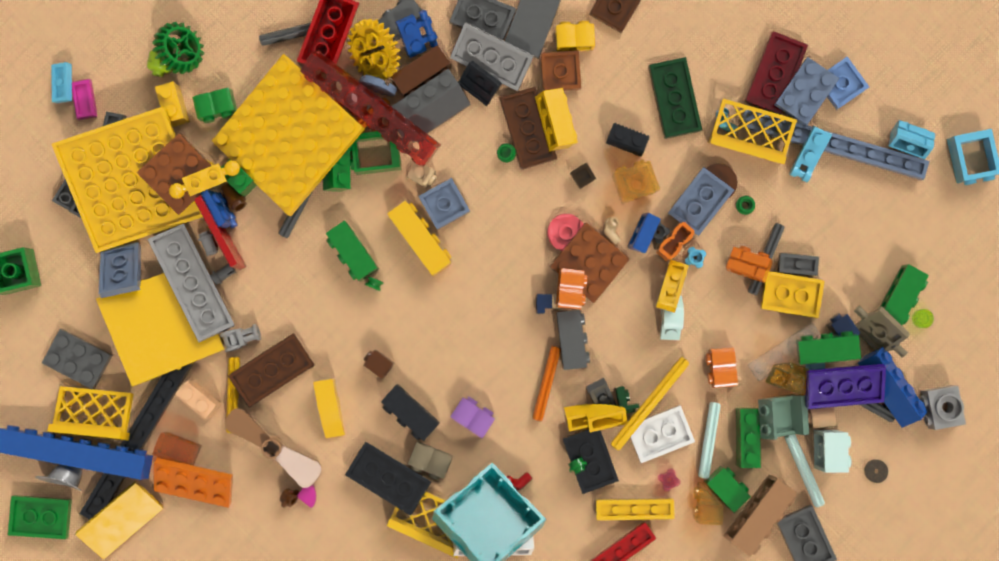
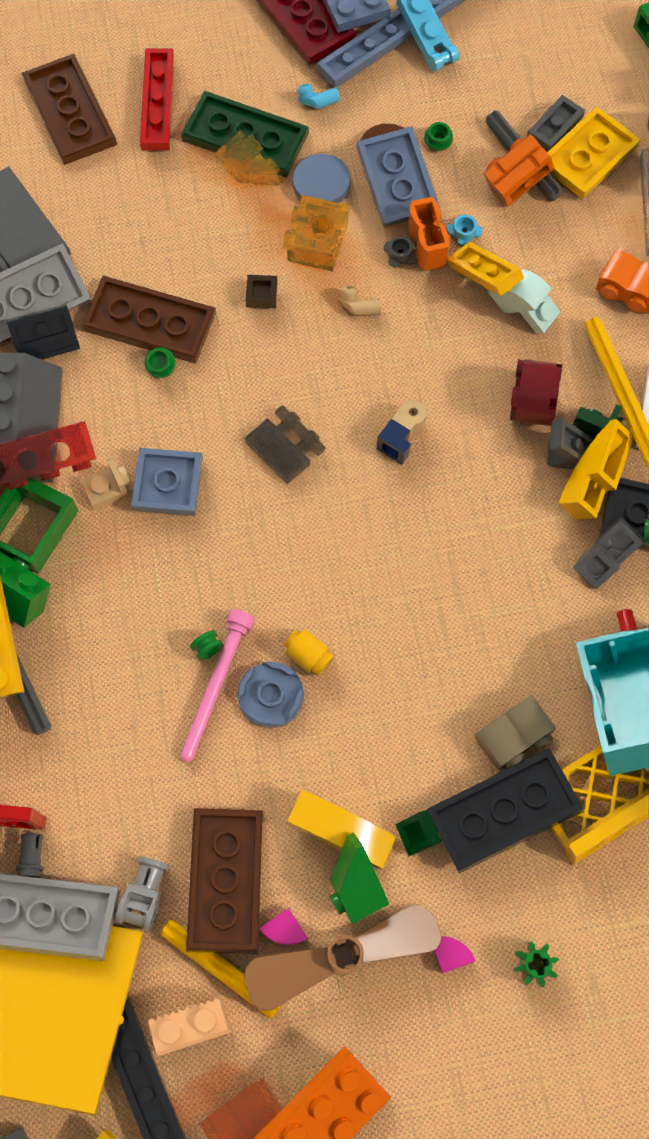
camera: 60 degrees left, 15 degrees down
(268, 412) = (284, 929): none -> dark pink tile
(288, 497) = (437, 985): reddish brown plate -> none
(307, 432) = (356, 883): none -> green slope
(323, 541) = (544, 971): none -> green gear
(351, 251) = (138, 645): green brick -> none
(352, 444) = (418, 833): none -> dark green tile
(372, 330) = (270, 695): none -> sand blue tile
(378, 363) = (325, 714): reddish brown brick -> none
(395, 292) = (238, 624): none -> bright pink piece
(403, 334) = (308, 652): none -> yellow brick
(409, 412) = (427, 716): black brick -> none
(419, 238) = (189, 542): yellow brick -> none
(473, 417) = (491, 633): medium lavender brick -> none
(499, 247) = (278, 451): none -> clear smoke plate
(546, 383) = (509, 509): orange axle -> none
(554, 448) = (608, 553): none -> flat silver slope
(556, 119) = (164, 273): yellow brick -> none
(561, 70) = (107, 234): dark orange plate -> none
(563, 229) = (320, 359): coral tile -> none
(571, 289) = (401, 386): orange brick -> none
(572, 339) = (470, 436): dark grey brick -> none
(575, 36) = (78, 191): yellow brick -> none
(595, 256) = (381, 353): dark orange plate -> none
(617, 359) = (535, 392): none -> dark red brick
(627, 139) = (255, 210): black brick -> none
(644, 232) = (389, 265): blue slope -> none
(652, 115) = (245, 162): none -> clear yellow slope
(662, 35) = (157, 99): none -> red plate
(673, 160) = (322, 178): none -> sand blue tile
(747, 147) = (363, 95): yellow fence -> none

